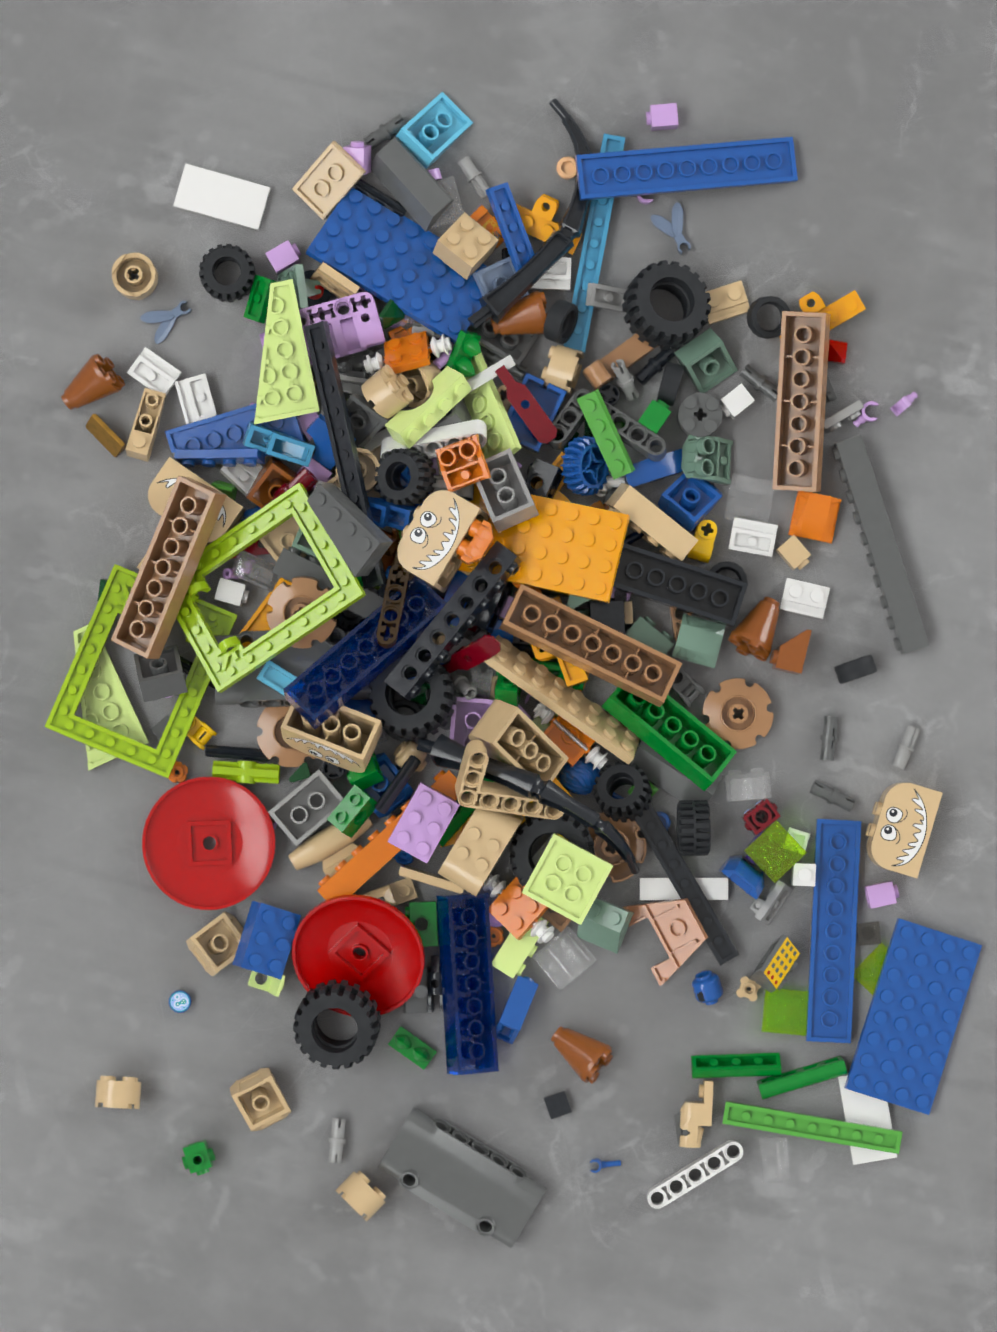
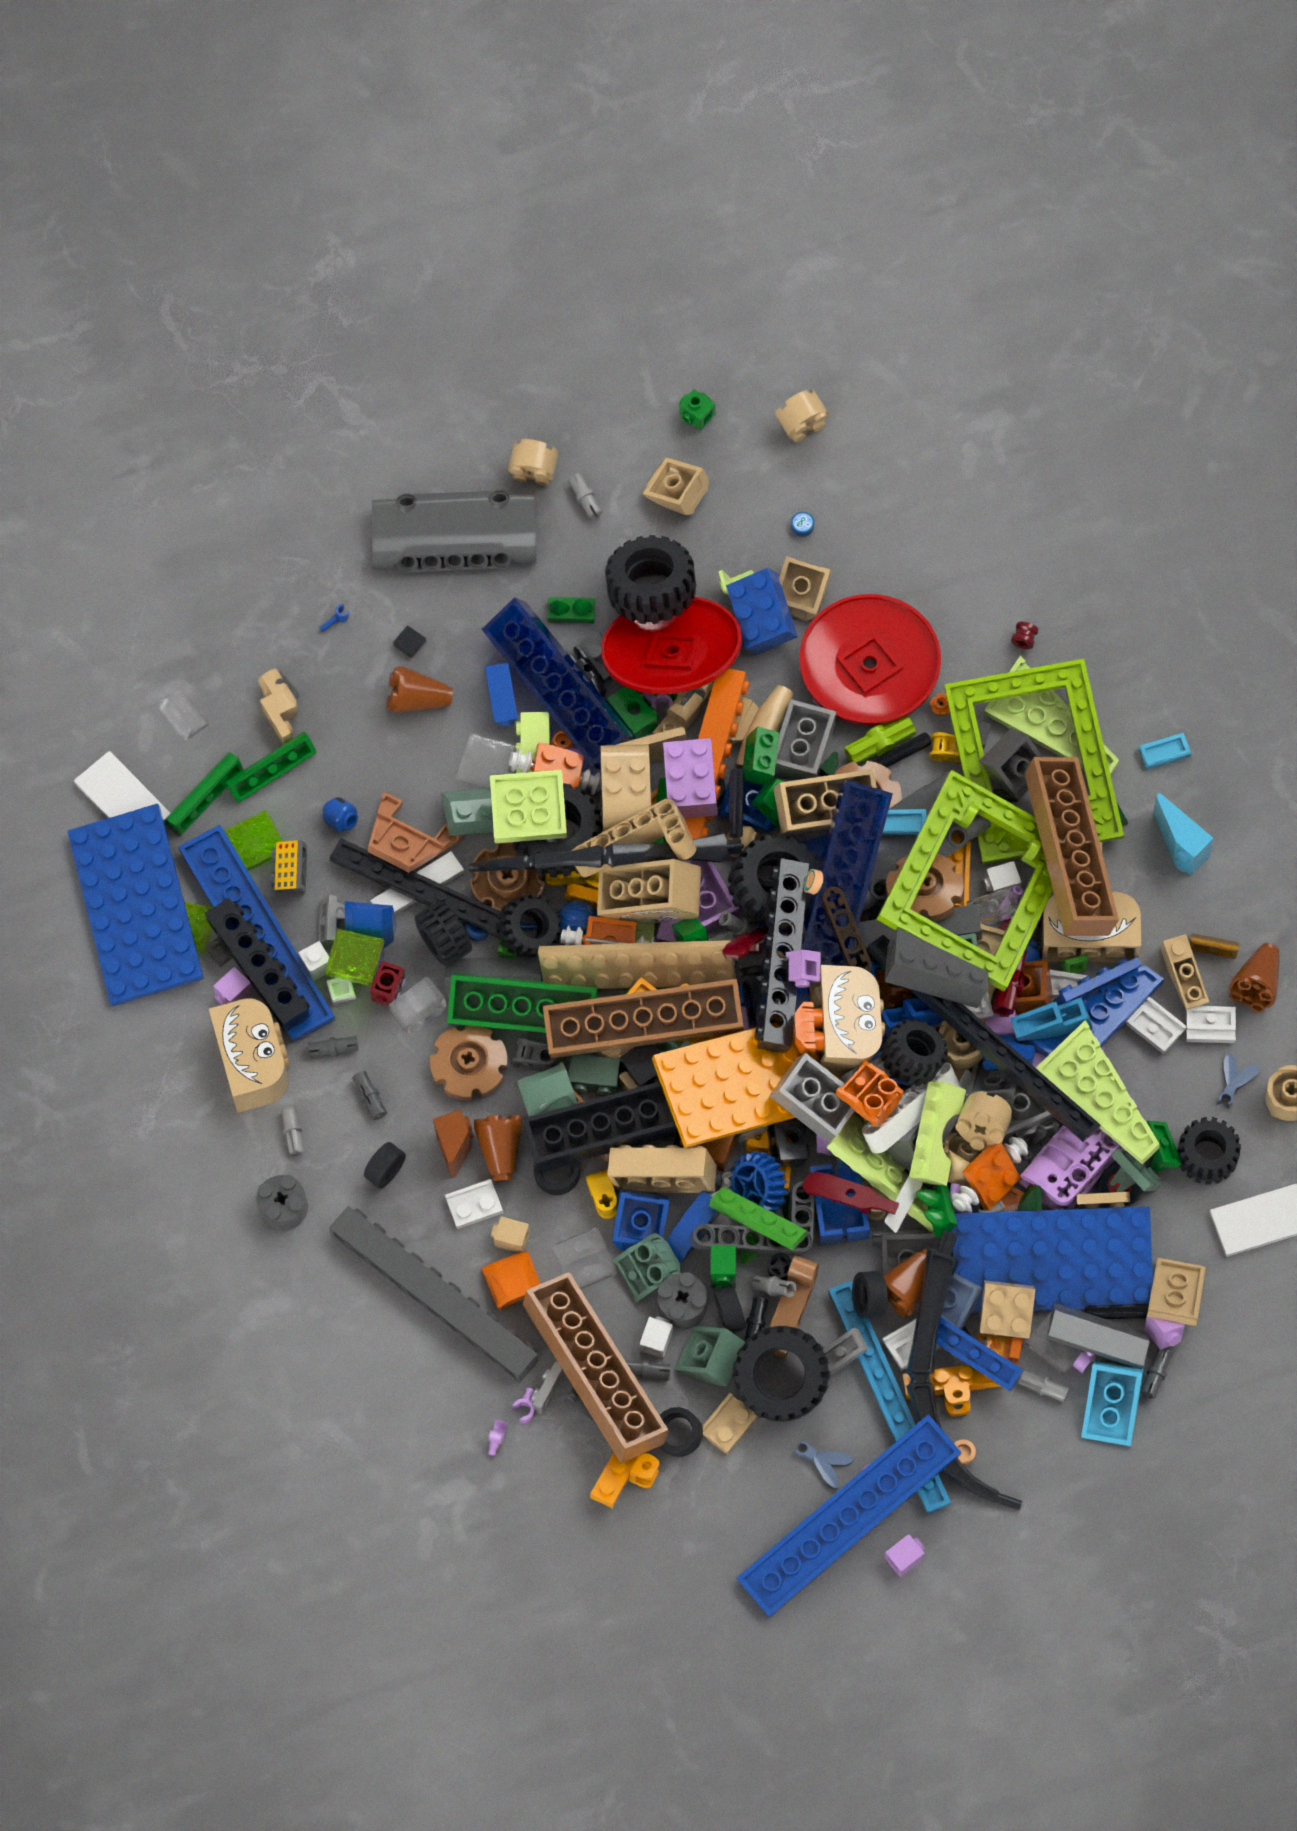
camera: 150 degrees right, 20 degrees down
(31, 618) = (1164, 751): none -> medium azure tile
(71, 529) = (1184, 838): none -> medium azure slope
(72, 786) = (1024, 635): none -> dark red wheel
(283, 256) = (1168, 1199): lavender brick -> none
(392, 660) = (813, 881): none -> light nougat tile
(447, 593) = (804, 967): none -> lavender brick
(563, 368) = (838, 1259): tan brick -> none
(688, 1183) = (245, 667): white beam -> none
(742, 991) = (305, 832): tan plate -> none
(753, 536) = (559, 1226): white plate -> none
(812, 1127) = (167, 756): bright green plate -> none
(837, 352) = (593, 1444): red slope -> none
(859, 954) = (287, 1014): none -> black brick
(940, 698) = (280, 1189): none -> dark grey brick

